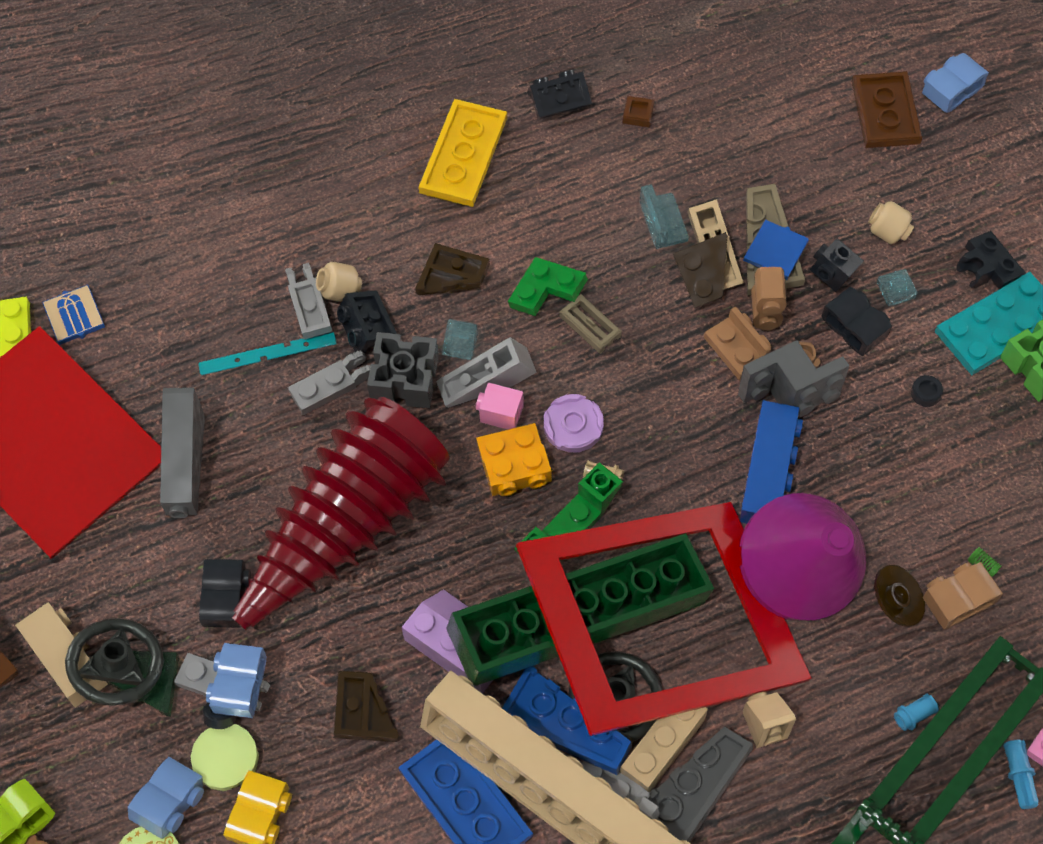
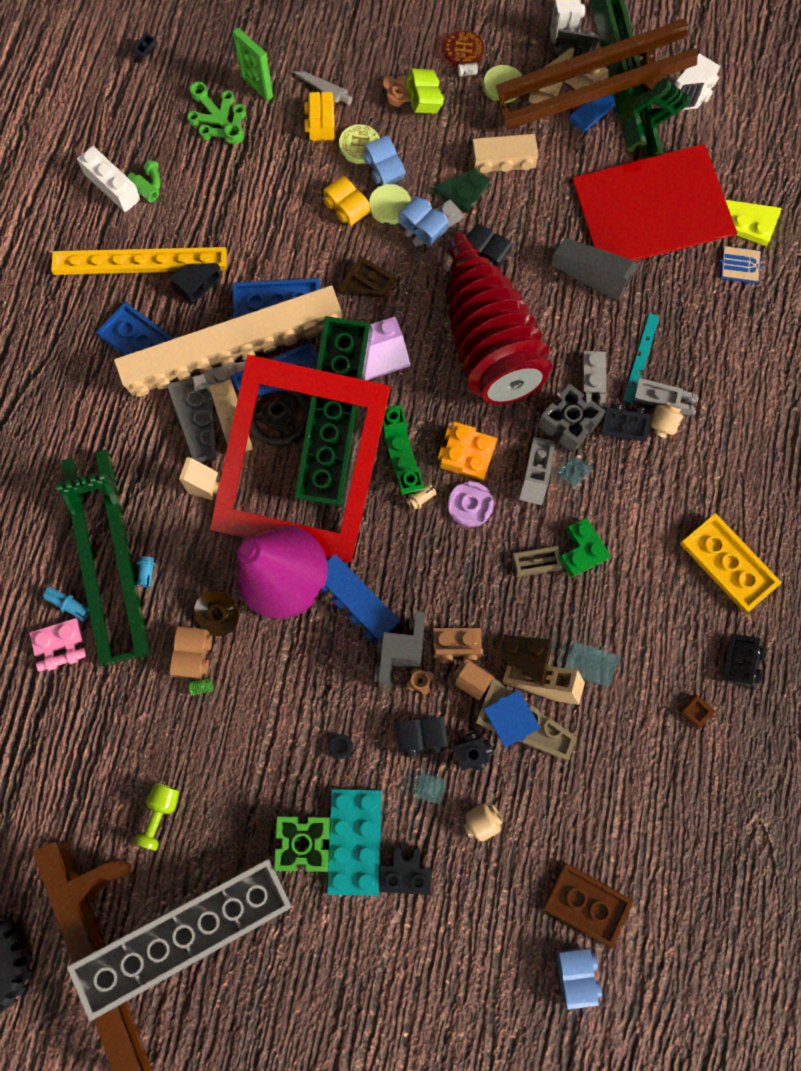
camera: 120 degrees right, 10 degrees up
(114, 662) = (478, 169): pearl dark grey piece -> none
(451, 271) = (633, 496): dark brown wing -> none
(500, 406) = (508, 463): bright pink brick -> none

